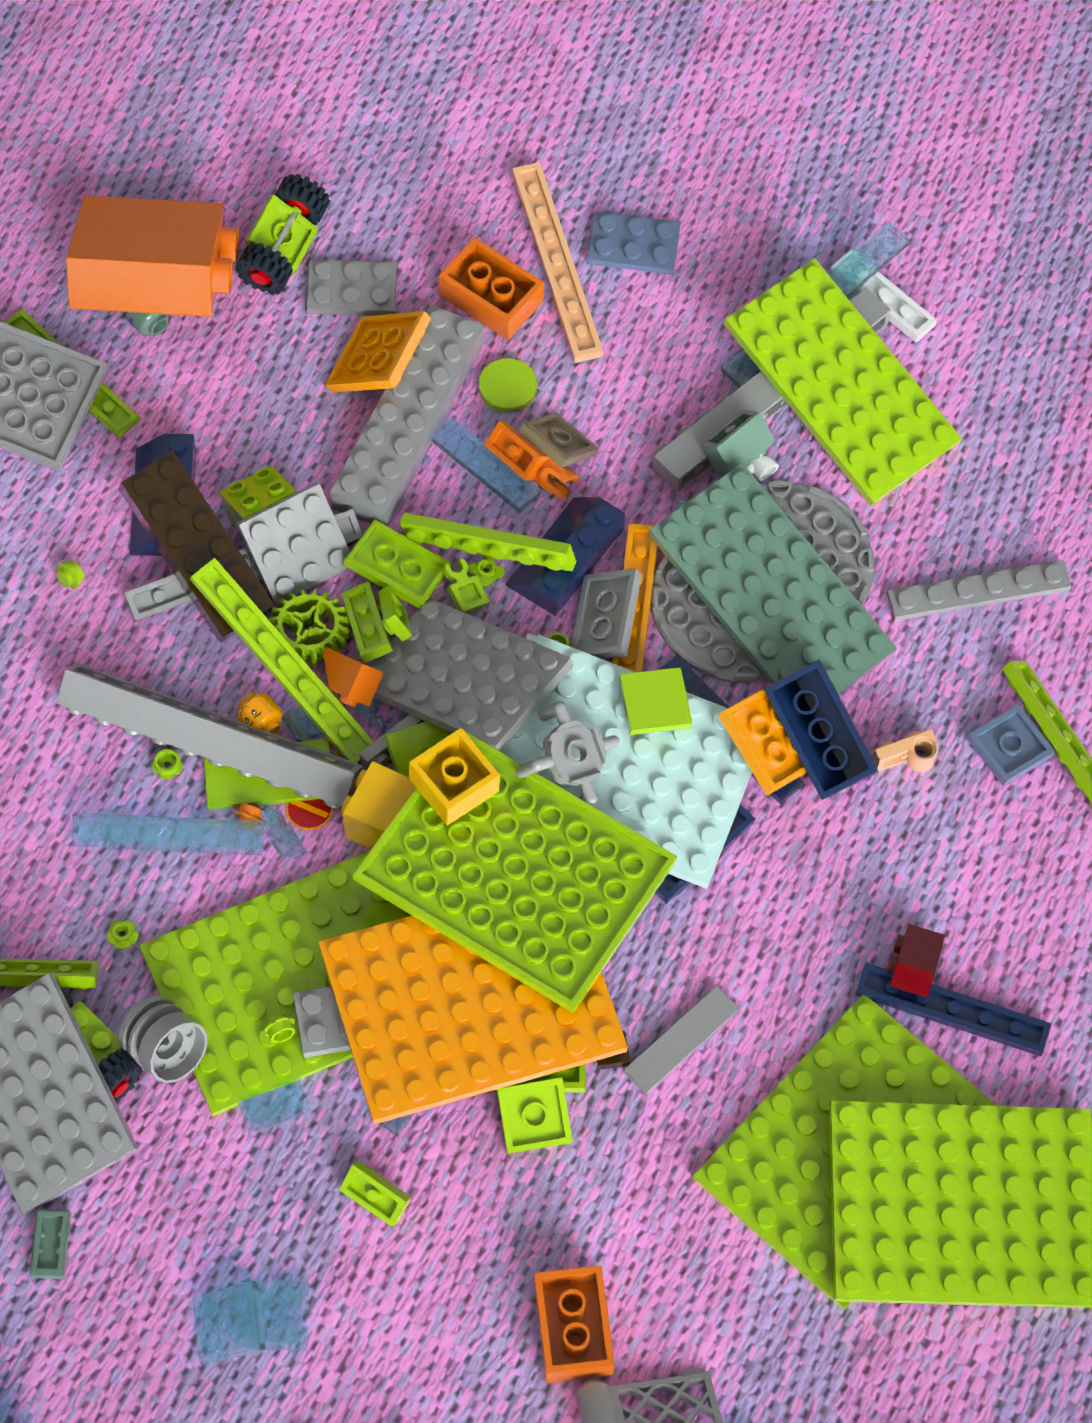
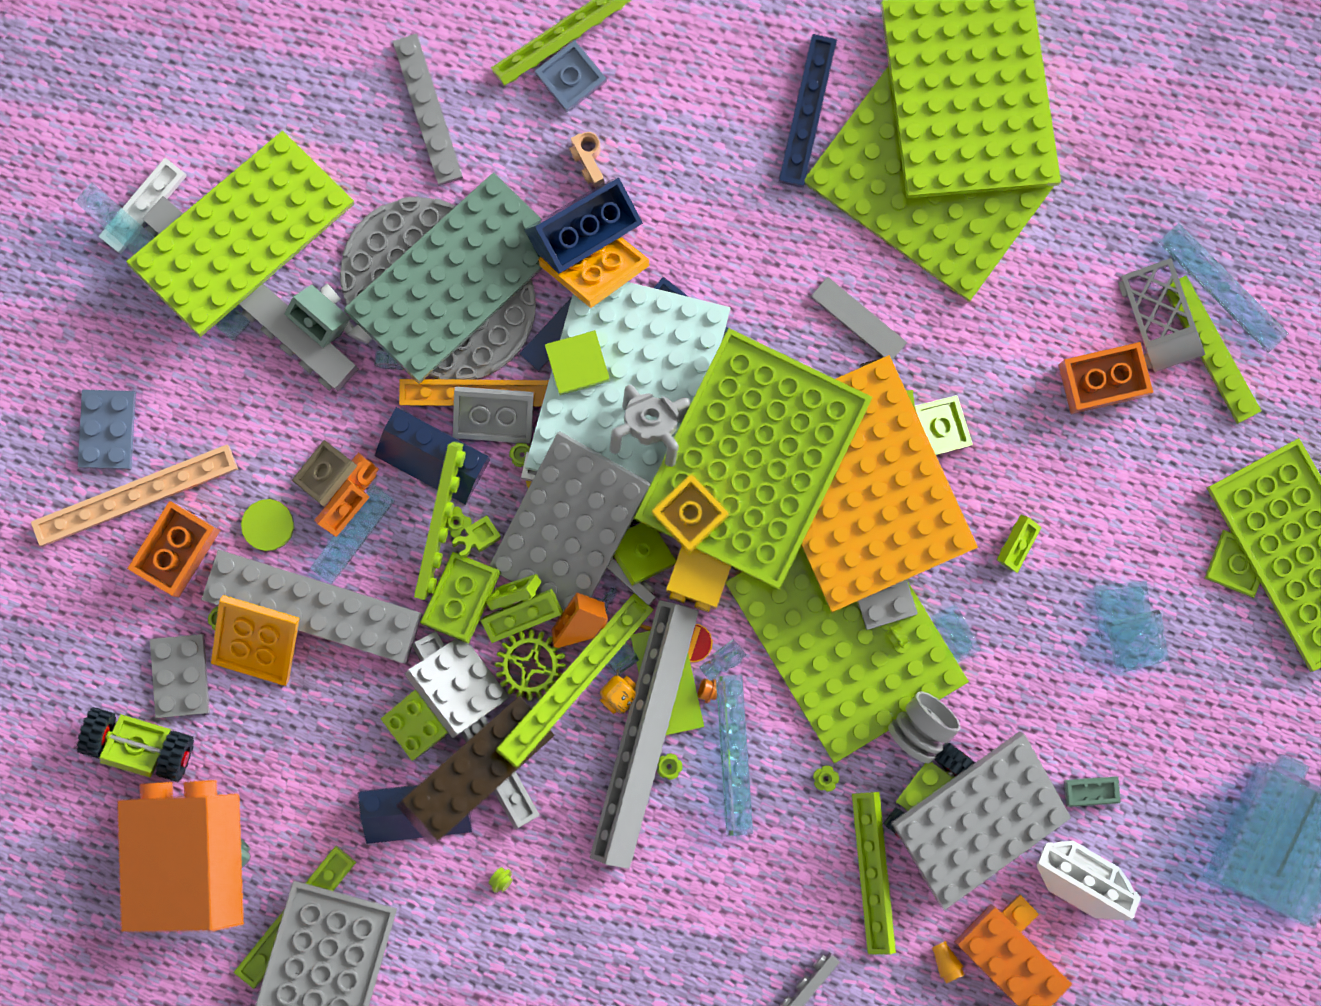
camera: 95 degrees left, 20 degrees up
(917, 960) = (775, 138): dark red brick -> none

